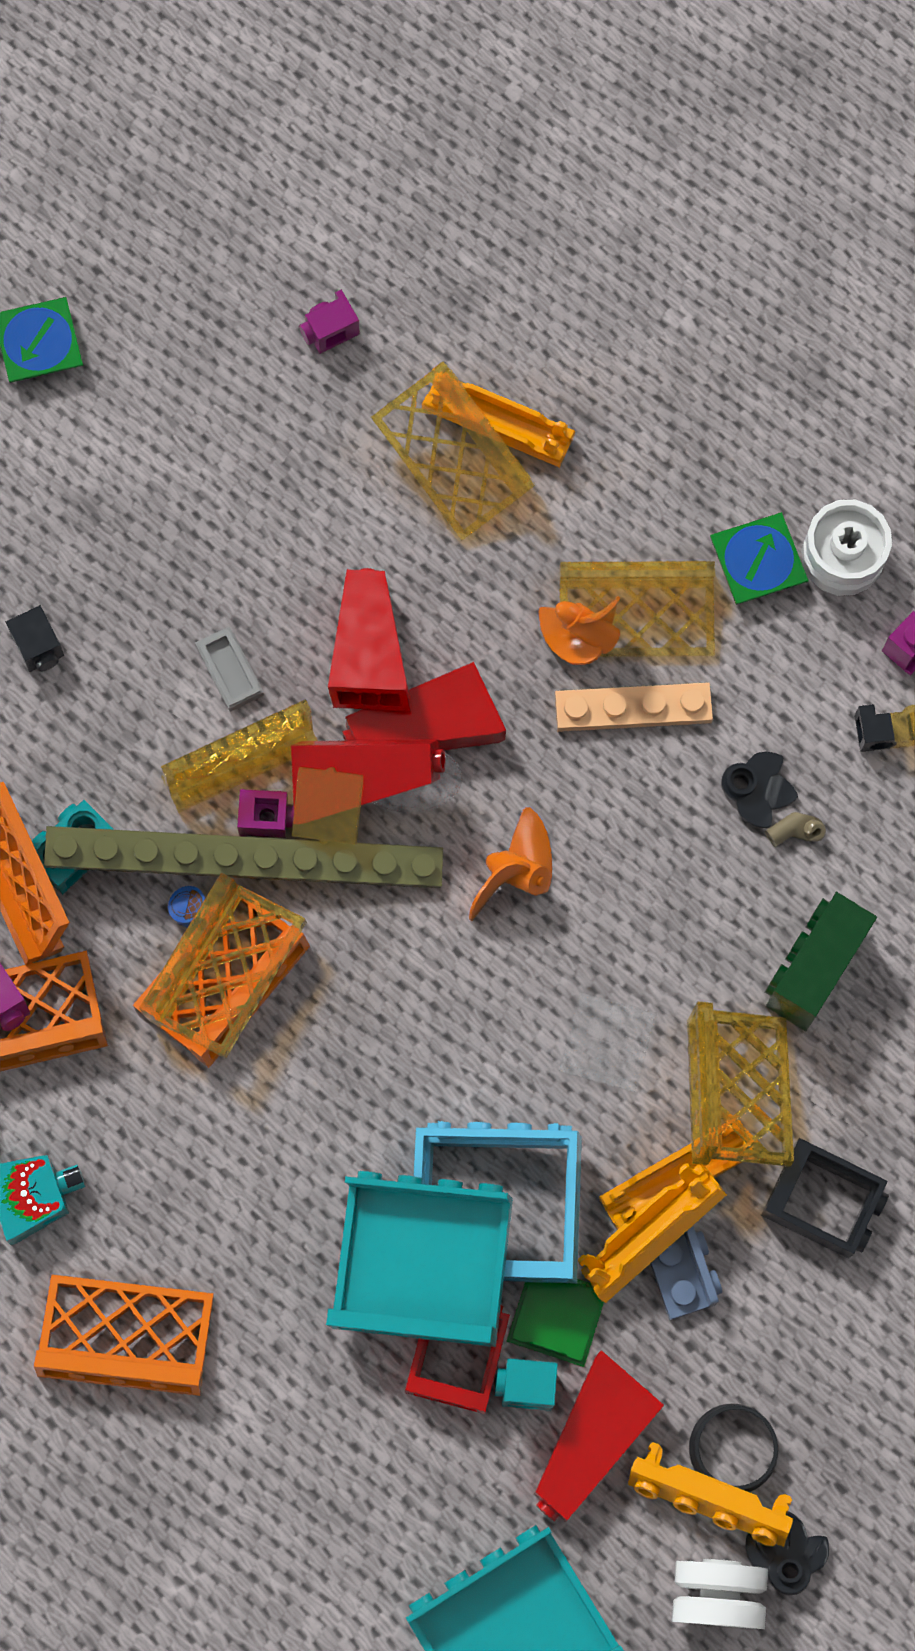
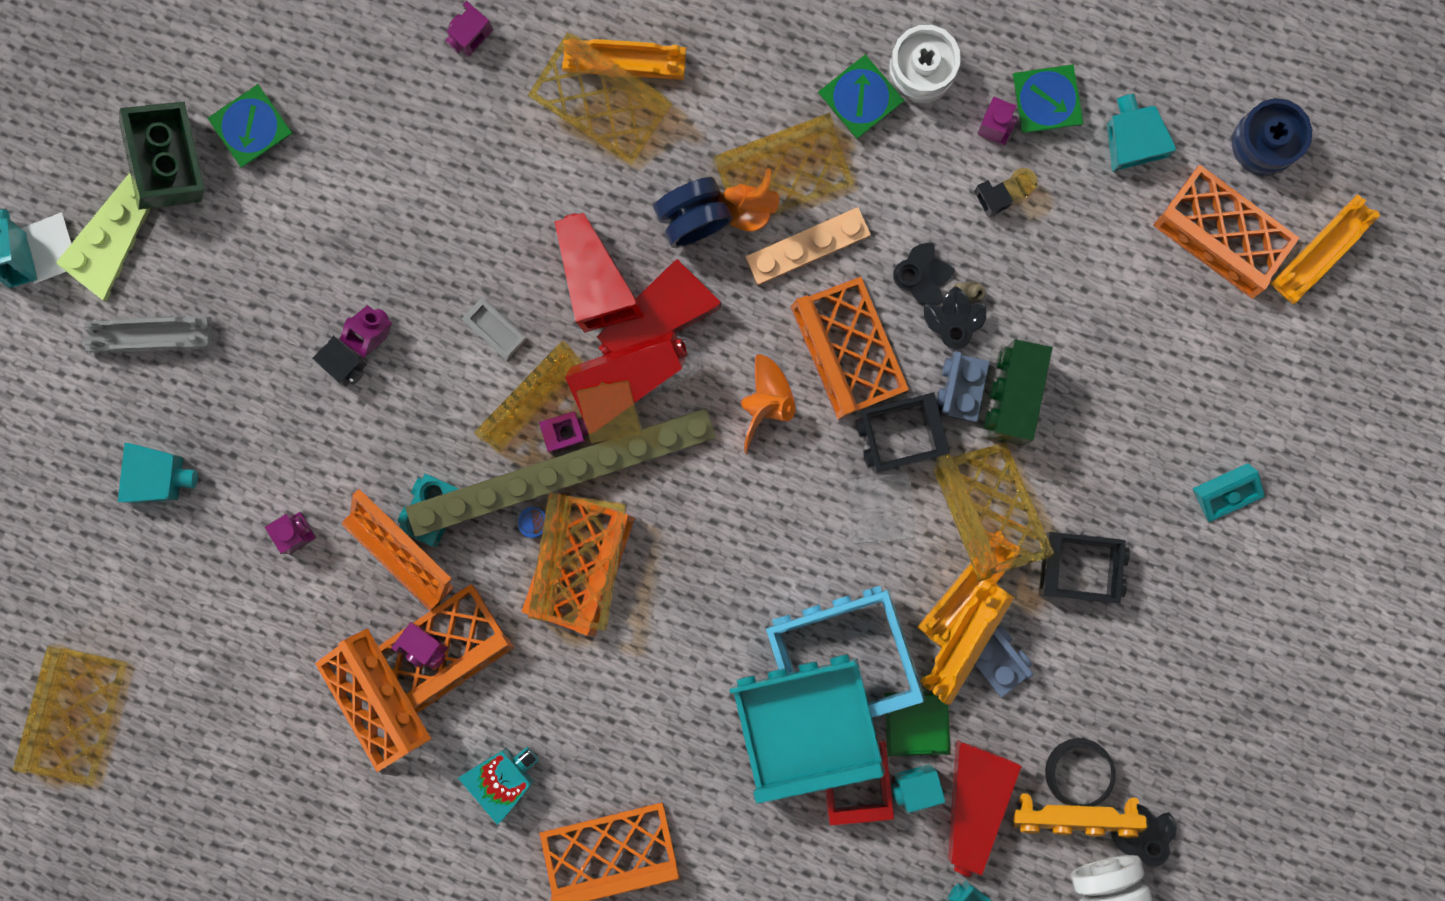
camera: 10 degrees left, 10 degrees up
(87, 608) = (369, 324): none -> magenta brick
(511, 616) = (692, 212): none -> dark blue wheel
(606, 834) = (824, 355): none -> orange fence
(706, 967) = (933, 425): none -> black window
(758, 935) = (963, 387): none -> sand blue bracket
(777, 844) = (955, 313): none -> black plate

